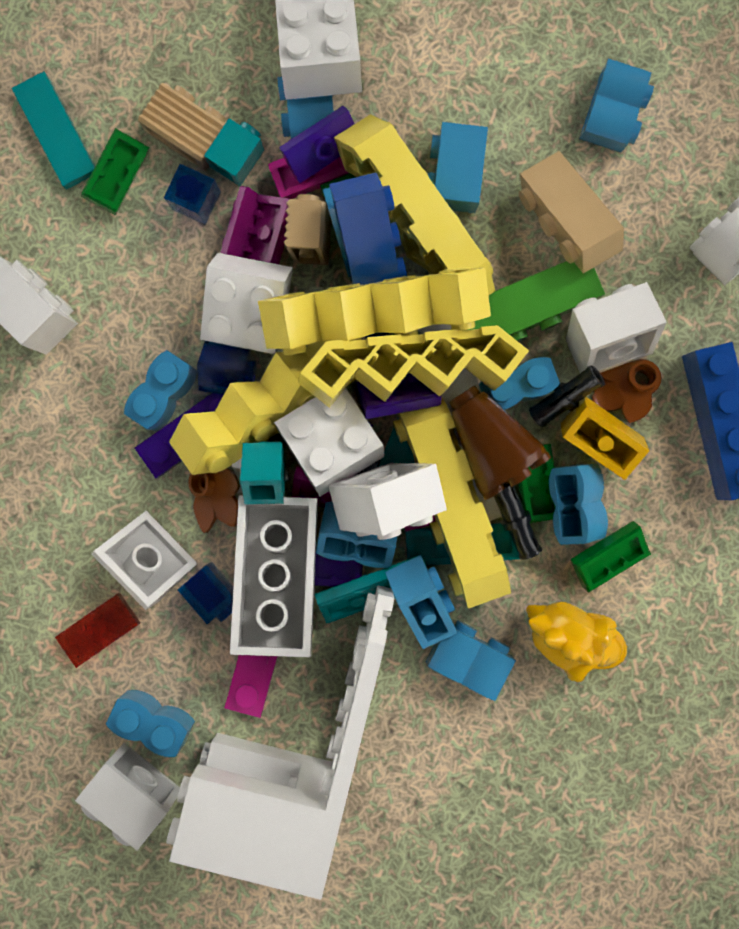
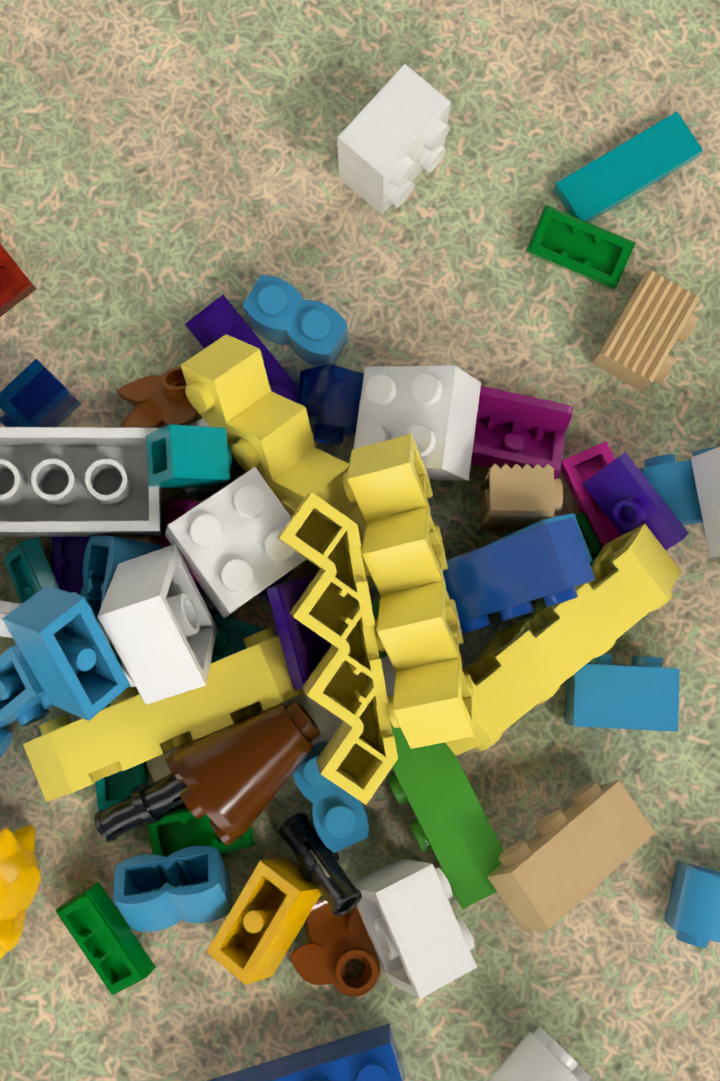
camera: 85 degrees right, 5 degrees down
(145, 560) = (75, 315): white slope -> none
(192, 194) = (557, 346): clear blue brick -> none
(235, 151) = (619, 398): teal brick -> none
(406, 560) = (67, 651): none -> dark azure brick

